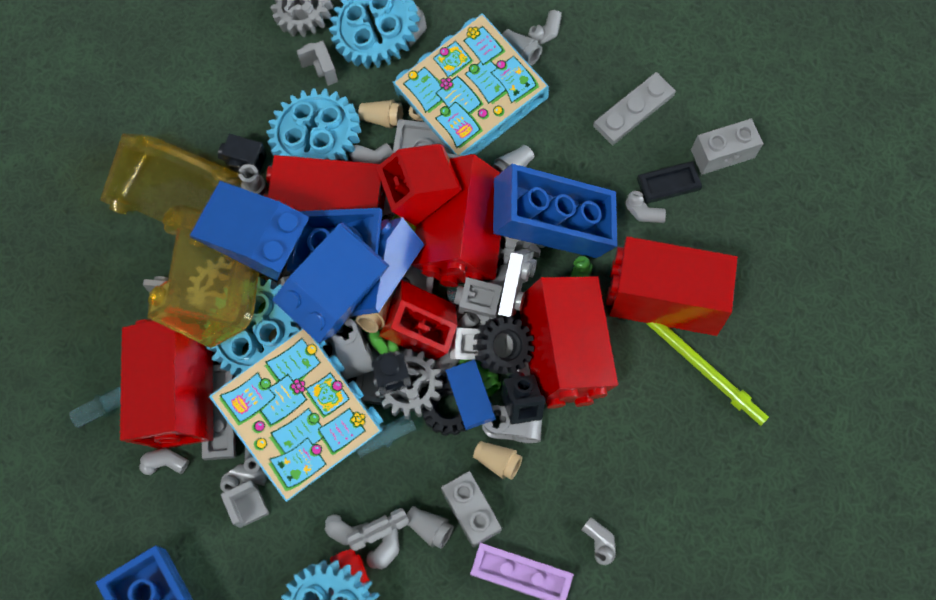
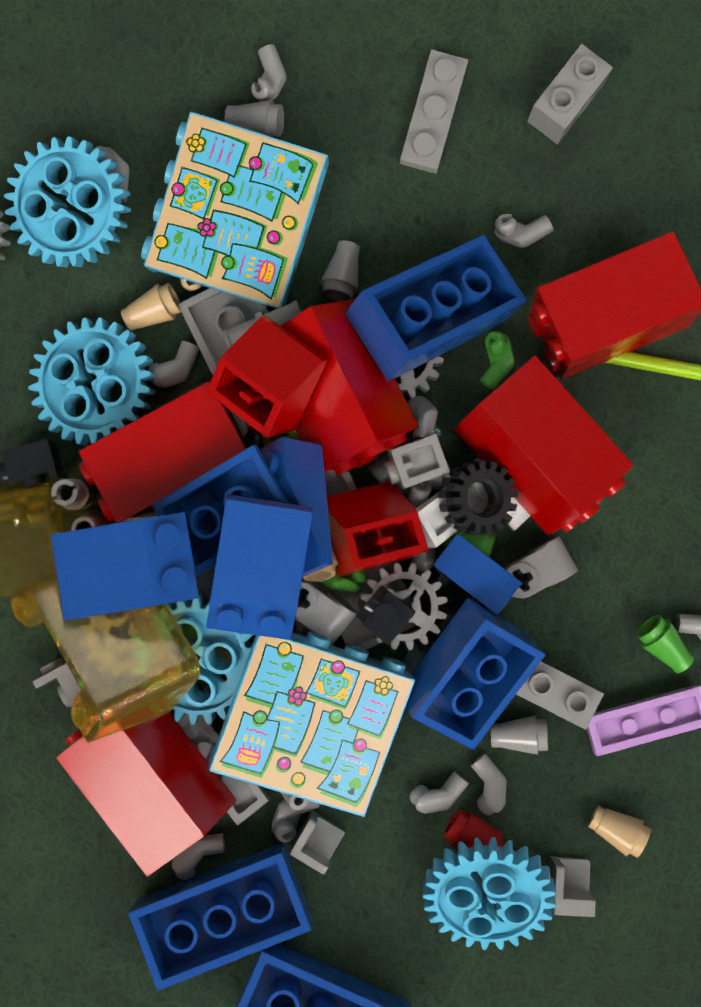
camera: 30 degrees left, 15 degrees up
(96, 408) = (84, 846): clear light blue axle -> none
(147, 508) = (220, 916): none -> blue brick
(317, 55) = (45, 294): light grey bracket -> none
(377, 529) = (473, 776): light grey axle -> none
(421, 455) = (471, 674): none -> blue brick
(499, 459) = (546, 617): tan cone -> none
(520, 268) = (446, 406): plate -> none
(521, 392) = (541, 553): black brick -> none
(567, 529) = (662, 640): none -> bright green cone
(669, 182) = (529, 178): black tile -> none

